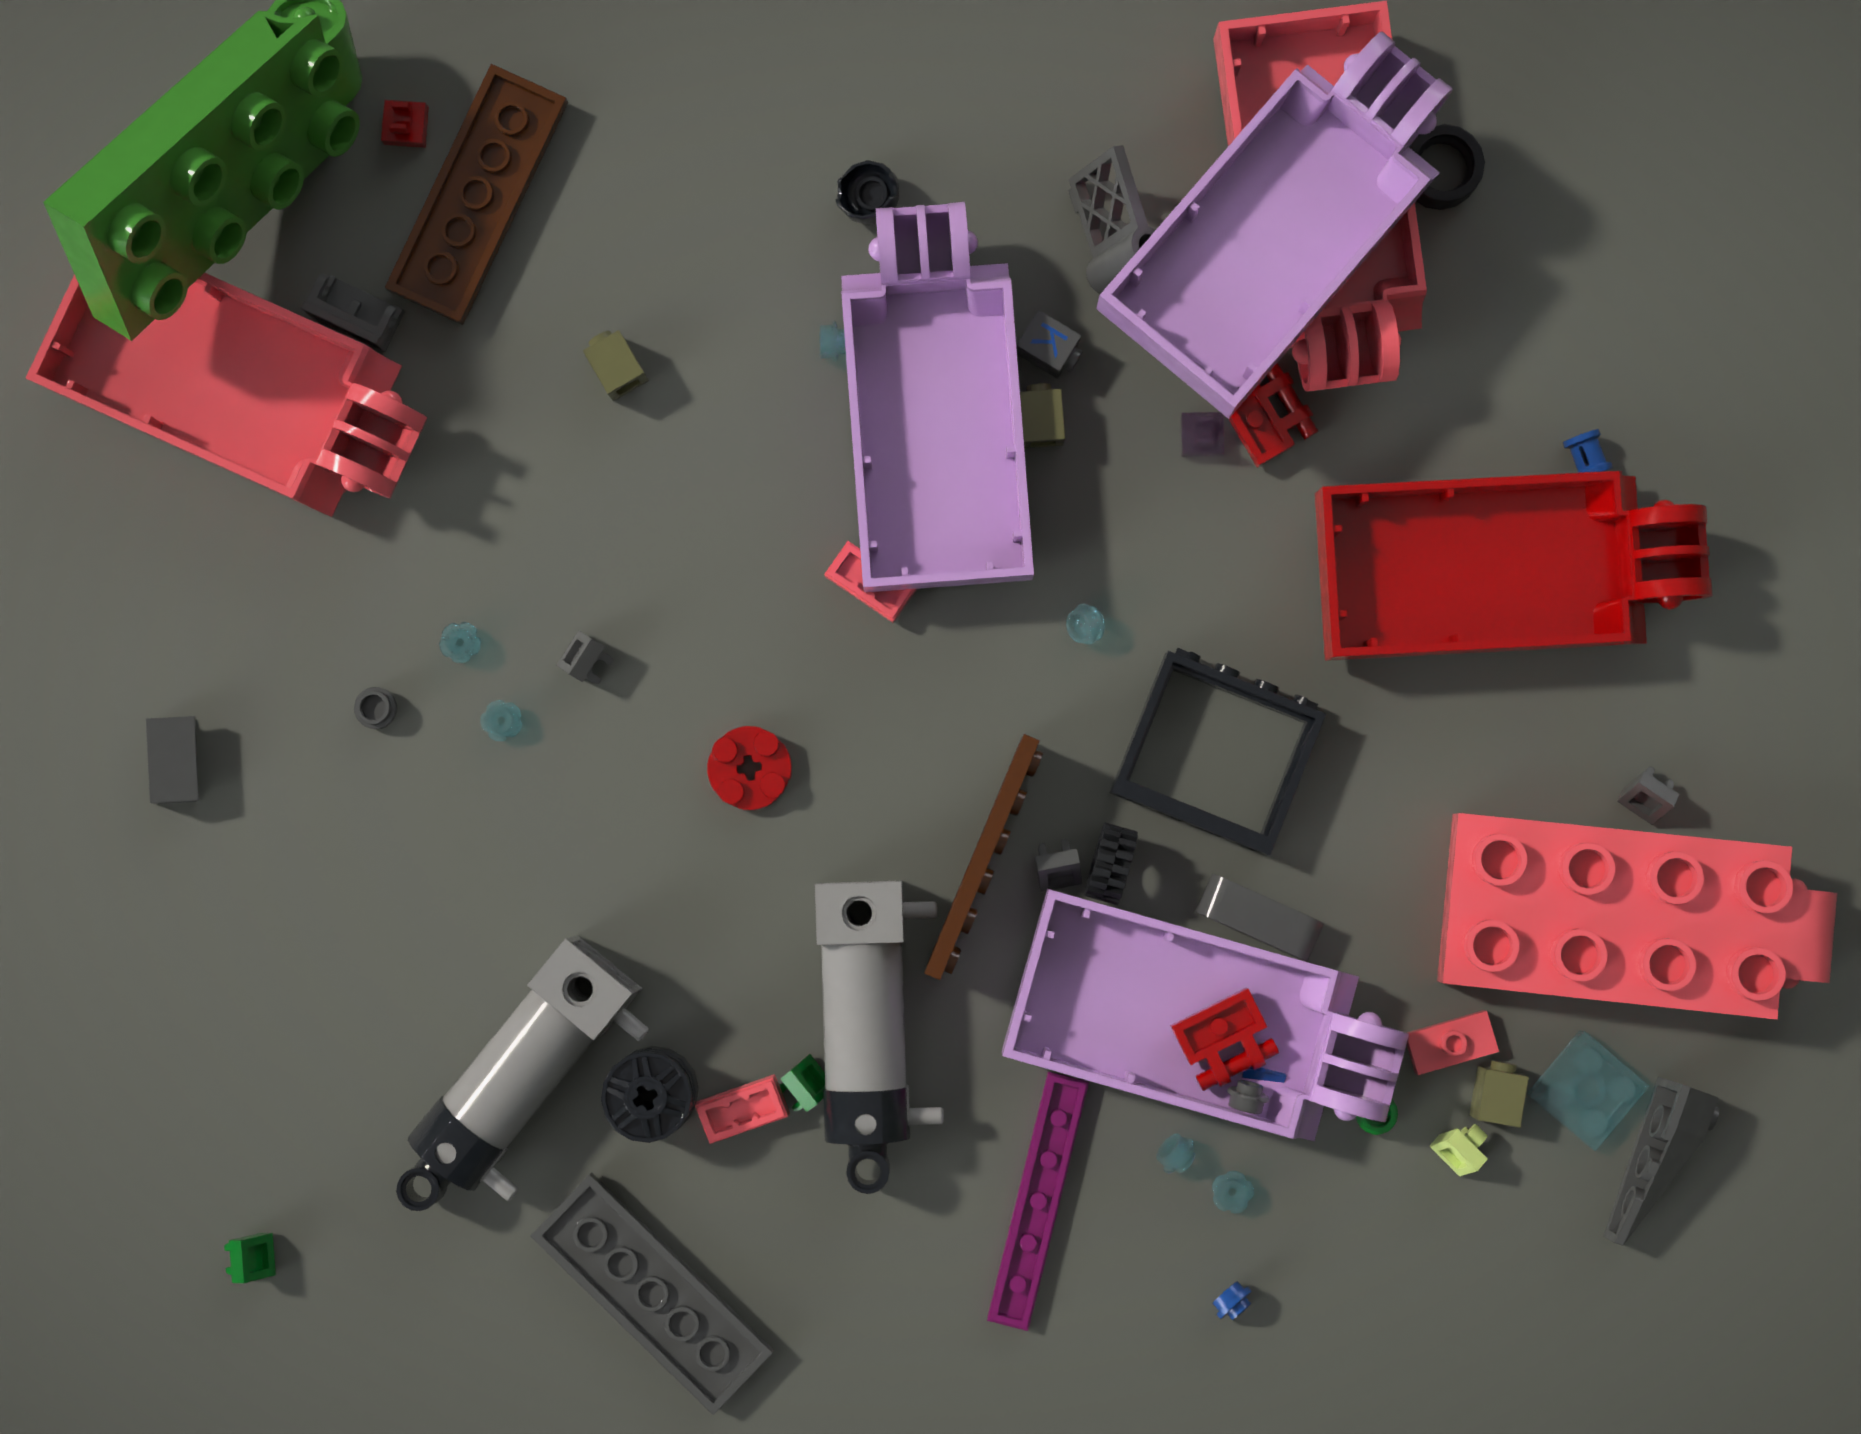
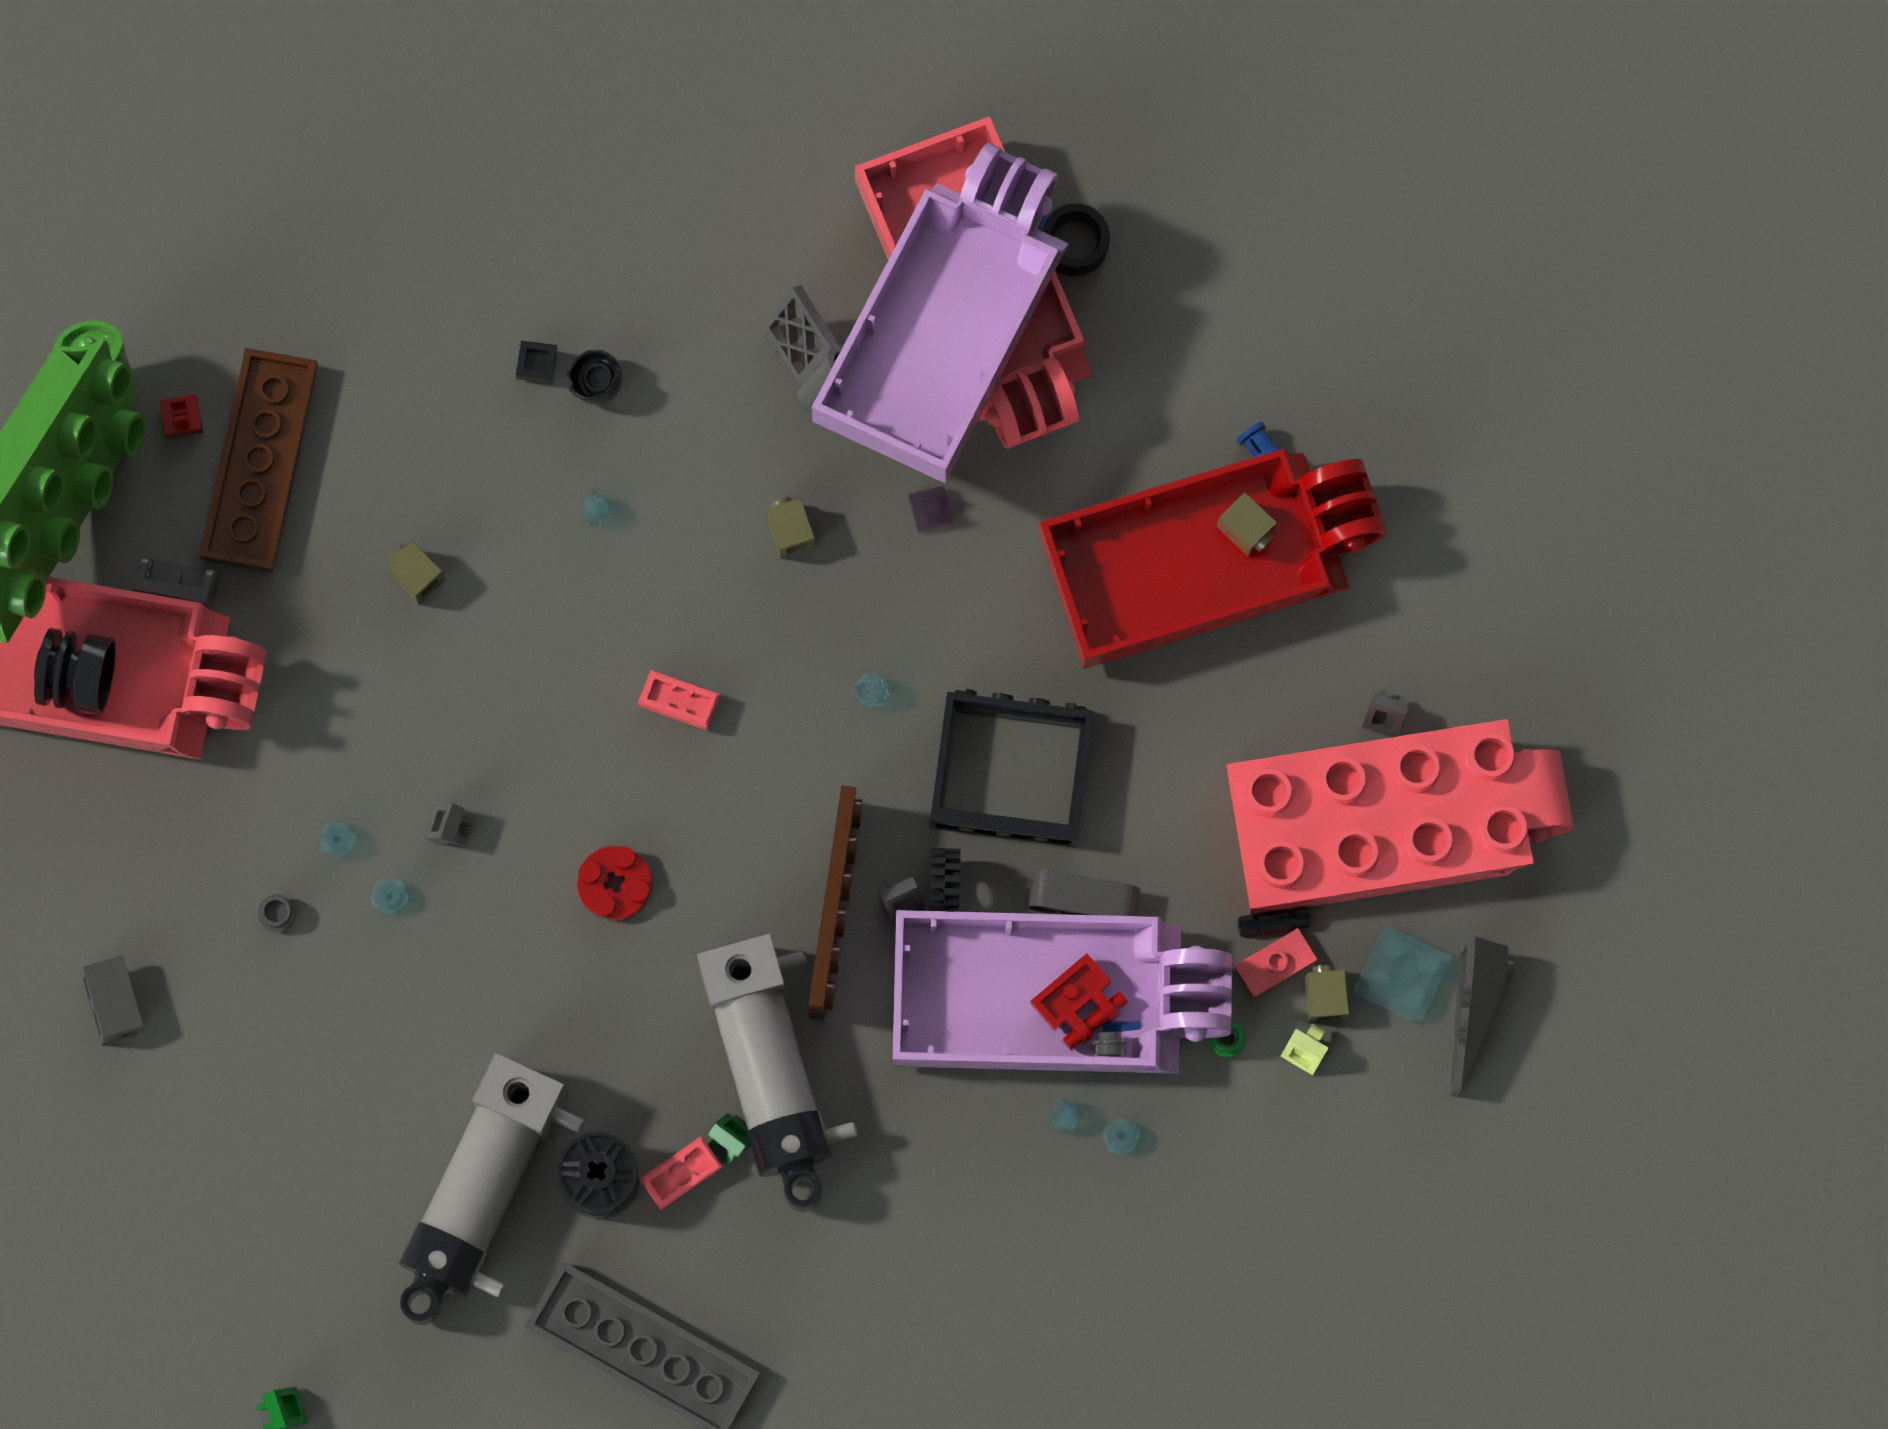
camera: 25 degrees left, 10 degrees down
(207, 387) = (67, 670): none -> black wheel
(808, 159) = (536, 362): none -> black plate
(935, 408) = (698, 541): lavender plate -> none
(1037, 1200) = (956, 1188): magenta tile -> none
(1049, 345) = (781, 465): dark grey brick -> none
(1233, 1301) = (1145, 1227): blue plate -> none
(1260, 425) = (975, 488): red plate -> none
(1461, 996) = (1274, 921): none -> black axle
(1554, 547) = (1247, 525): none -> olive brick

